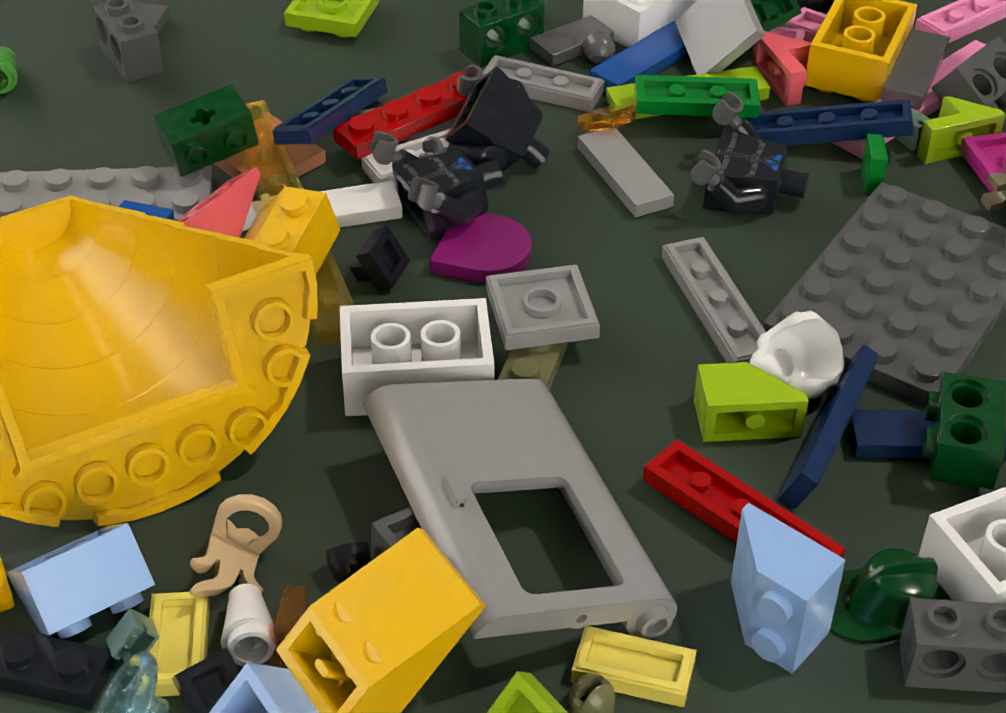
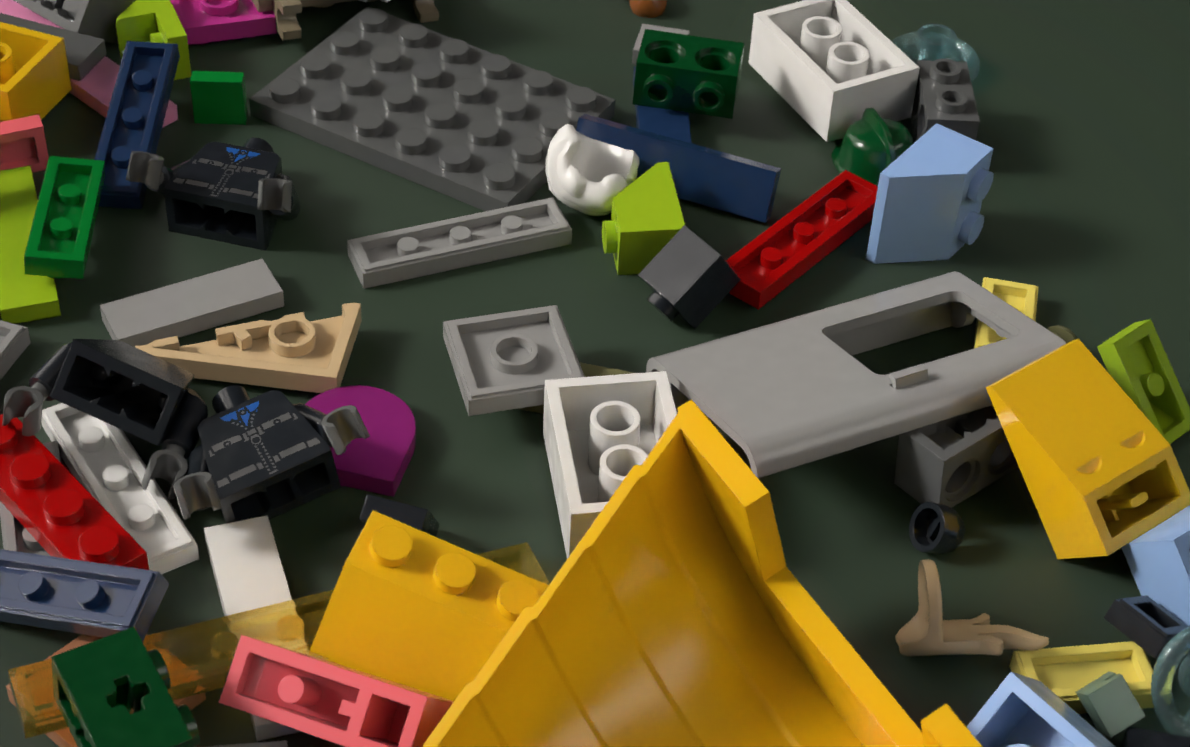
camera: 95 degrees left, 0 degrees up
(248, 626) = (1057, 604): white cone -> none
(291, 608) = (1050, 562): clear orange tile -> none
(567, 207) = (271, 353): none -> tan wing
(606, 117) = (83, 307): clear orange tile -> none
(653, 414) = (688, 278): none -> black brick

